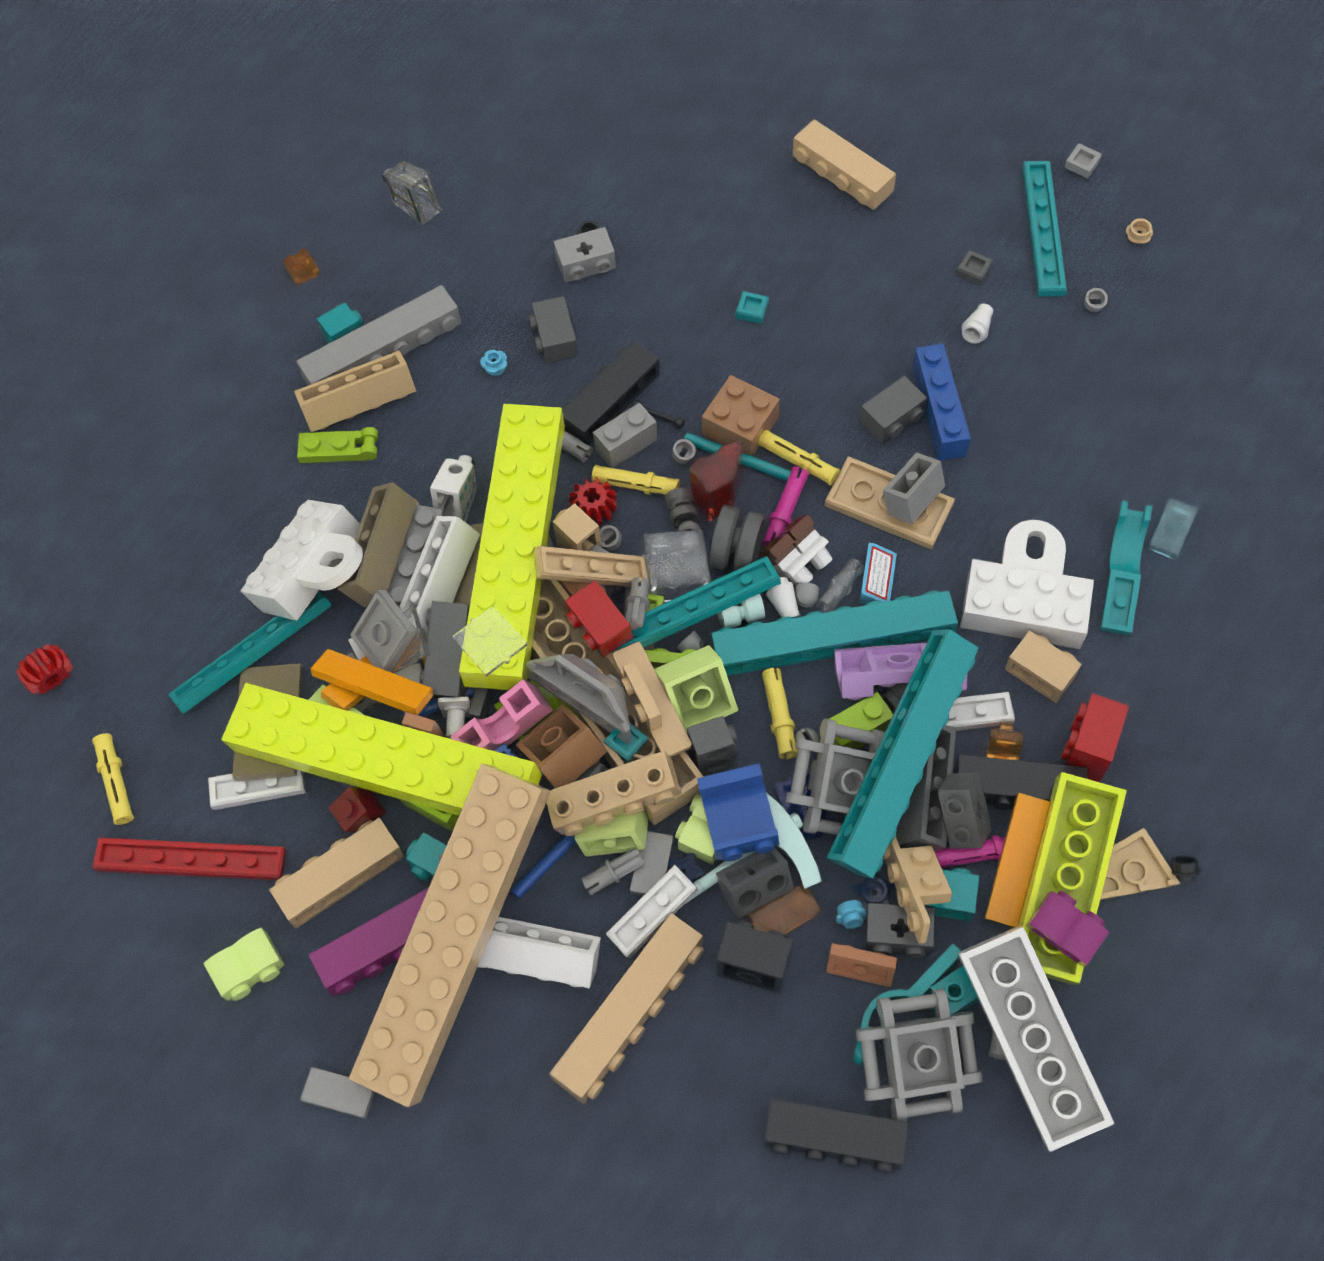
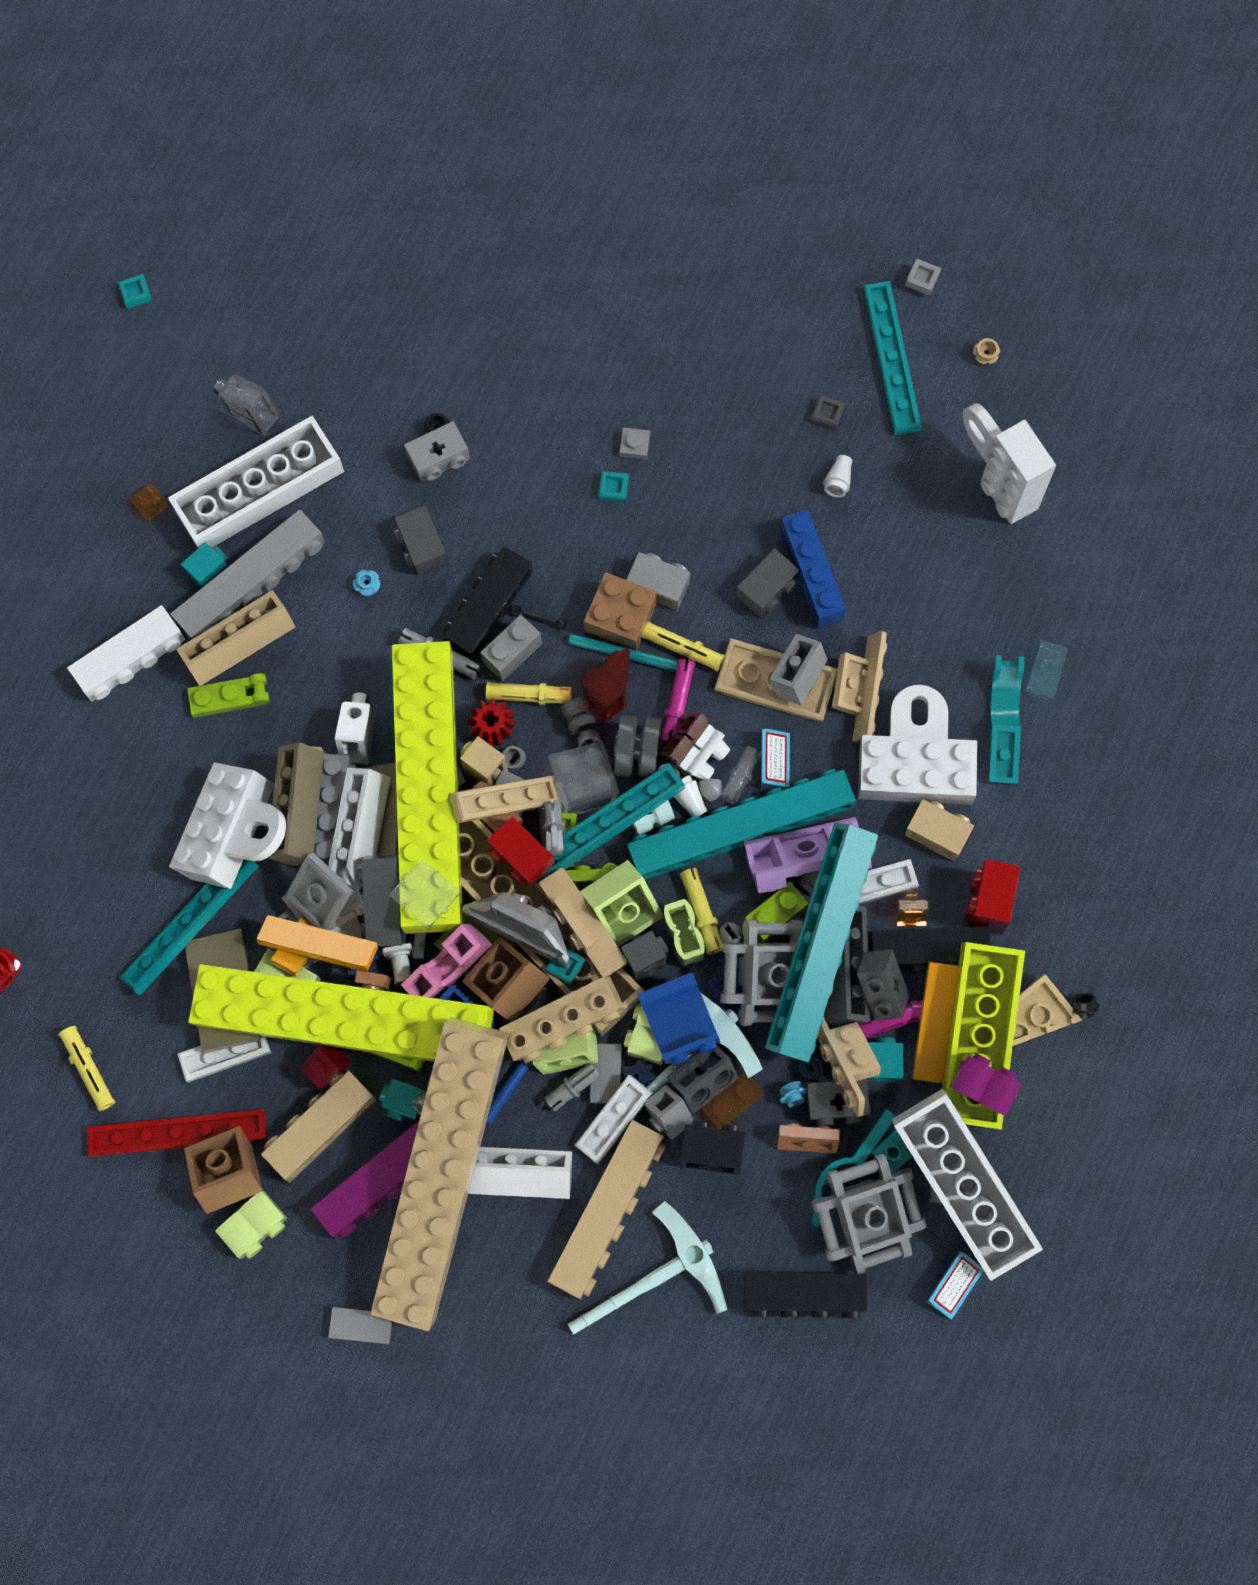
camera: 10 degrees left, 10 degrees up
(225, 899) = (223, 1170): none -> medium nougat brick
(246, 394) = (126, 654): none -> white brick
(329, 92) = (135, 291): none -> teal tile
(406, 259) = (257, 484): none -> white brick
(677, 448) = (576, 658): light grey hinge -> none
(692, 641) = (608, 854): light grey hinge -> none
(711, 911) = (668, 1112): none -> light grey brick
(714, 1074) = (692, 1256): none -> light aqua piece
(757, 729) = (680, 923): none -> yellowish green brick
(779, 272) = (635, 443): none -> light grey plate
(794, 393) = (666, 579): none -> light grey brick
(843, 164) = (683, 315): tan brick -> none
(975, 513) = (859, 684): none -> tan bracket
(1007, 1153) = (955, 1285): none -> slope
(1095, 295) = (949, 430): light grey hinge -> none
(1161, 318) = (1016, 463): none -> white brick

